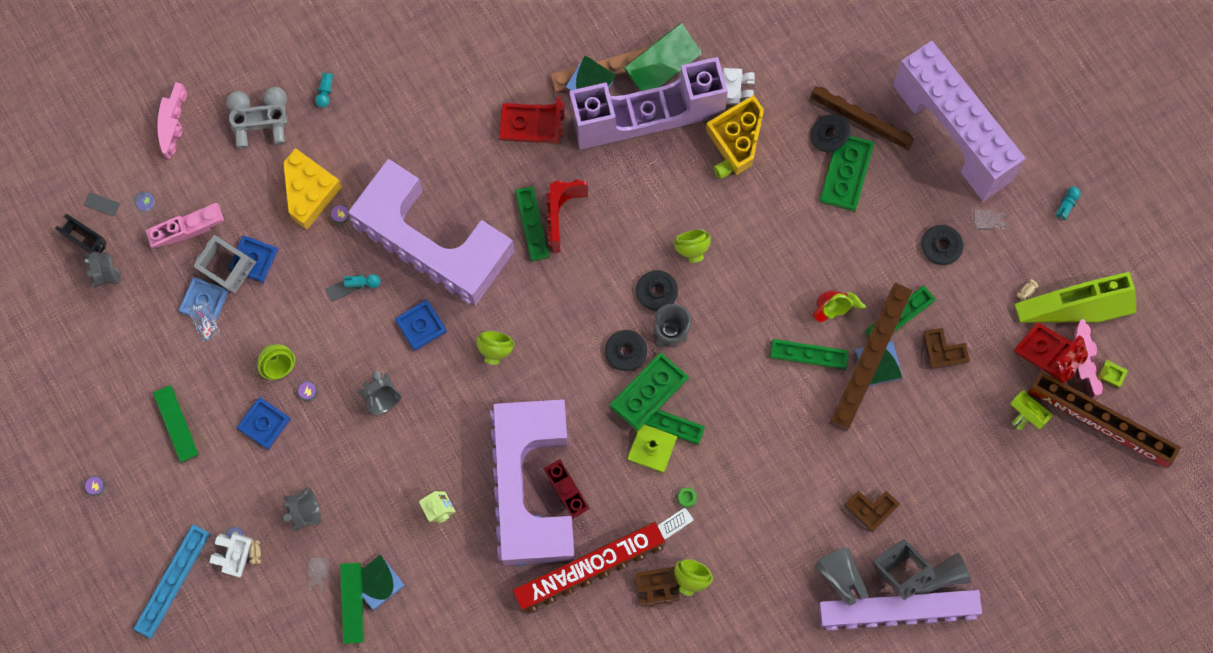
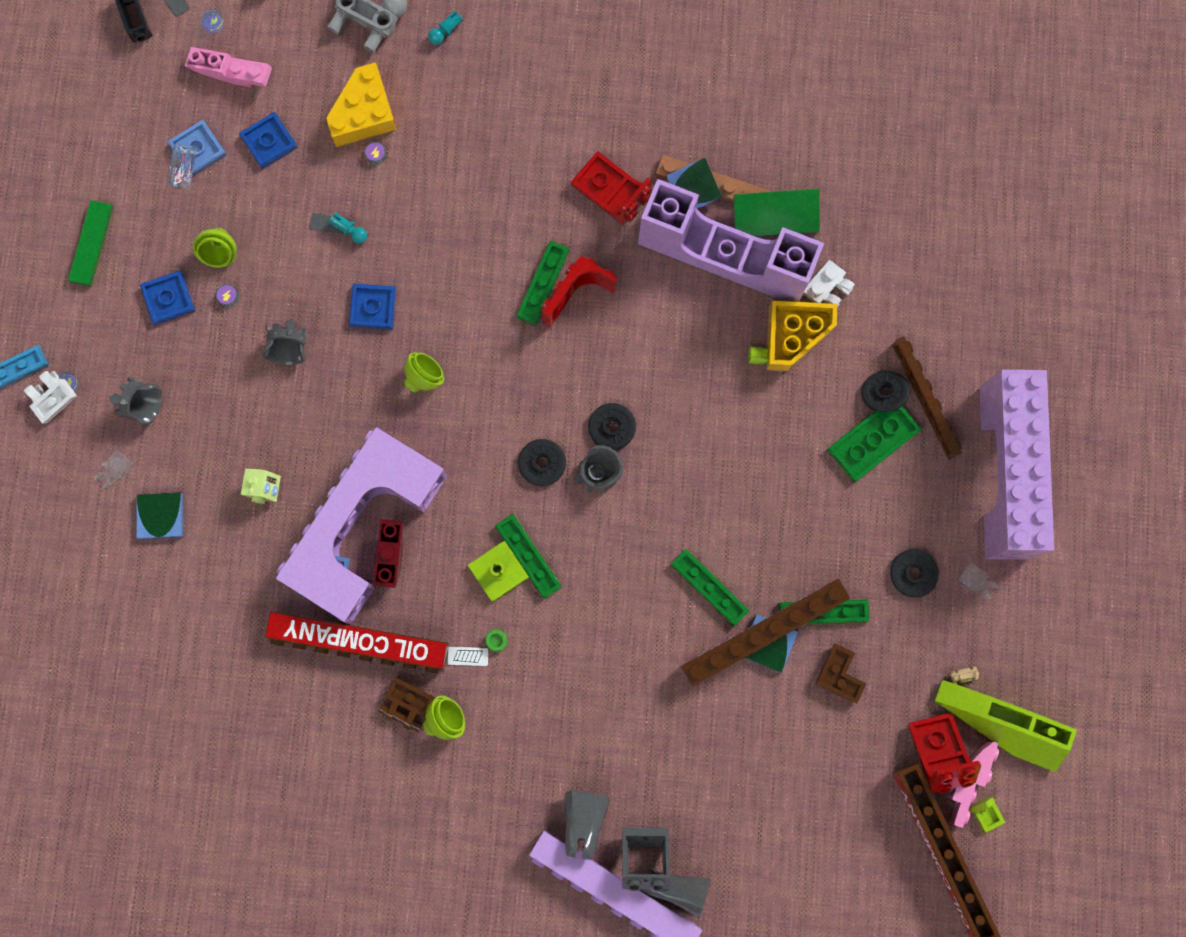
camera: 30 degrees right, 5 degrees up
(101, 269) = (122, 56): dark grey hair -> none
(239, 272) = (245, 142): light grey window -> none
(254, 552) = (72, 410): tan piece -> none
(352, 603) = (122, 518): green tile -> none
(462, 270) = (409, 180): lavender arch -> none
(648, 392) = (533, 516): green tile -> none
(693, 244) = (675, 406): lime piece -> none
(835, 303) = (768, 557): lime hair -> none
(872, 514) = (657, 783): reddish brown plate -> none
(1030, 411) = (879, 794): lime tile -> none
(1073, 193) = (1077, 613): teal pin -> none

